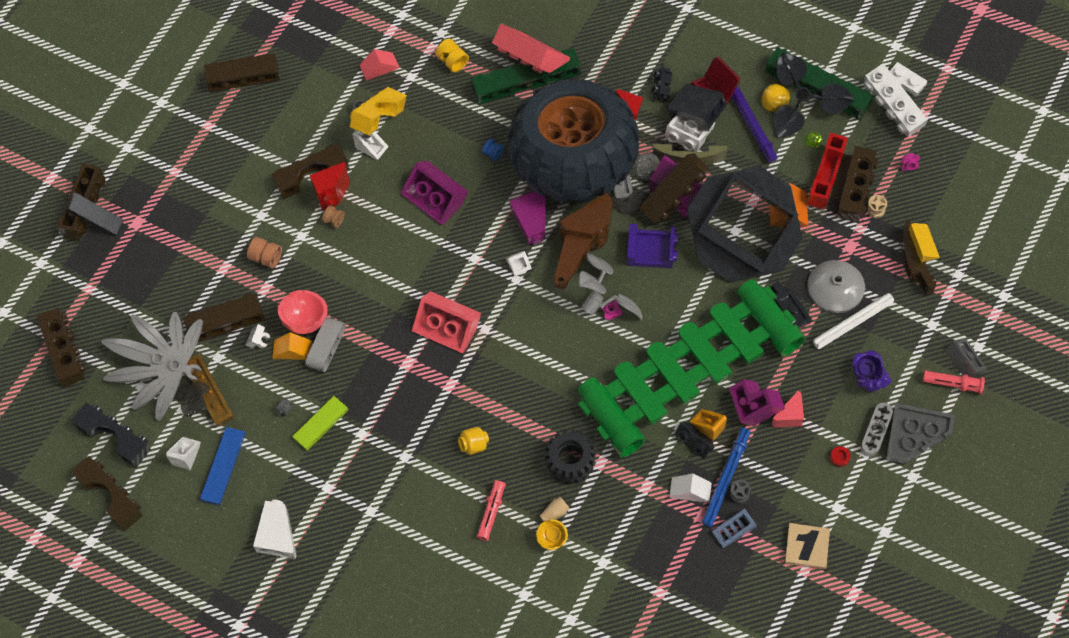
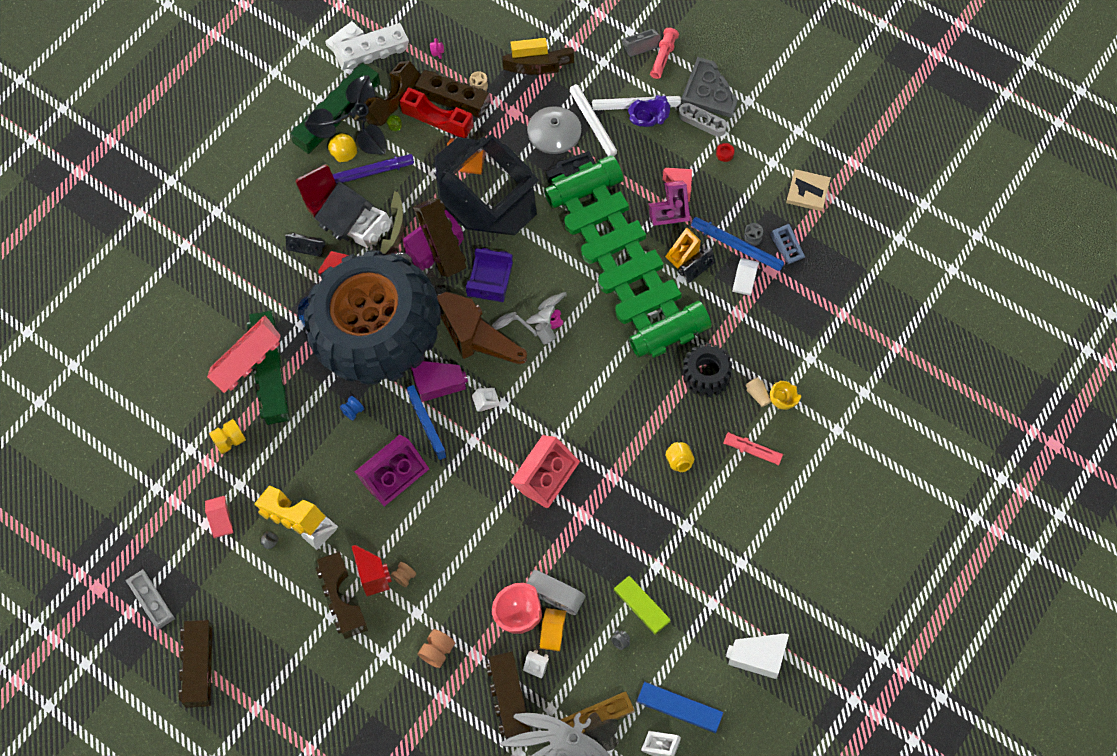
camera: 85 degrees left, 0 degrees up
(299, 29) = (150, 599): none -> light grey tile
(484, 213) = (426, 422): none -> blue tile
(821, 119) = (402, 77): none -> dark brown arch
(881, 349) = (624, 103): none -> white axle

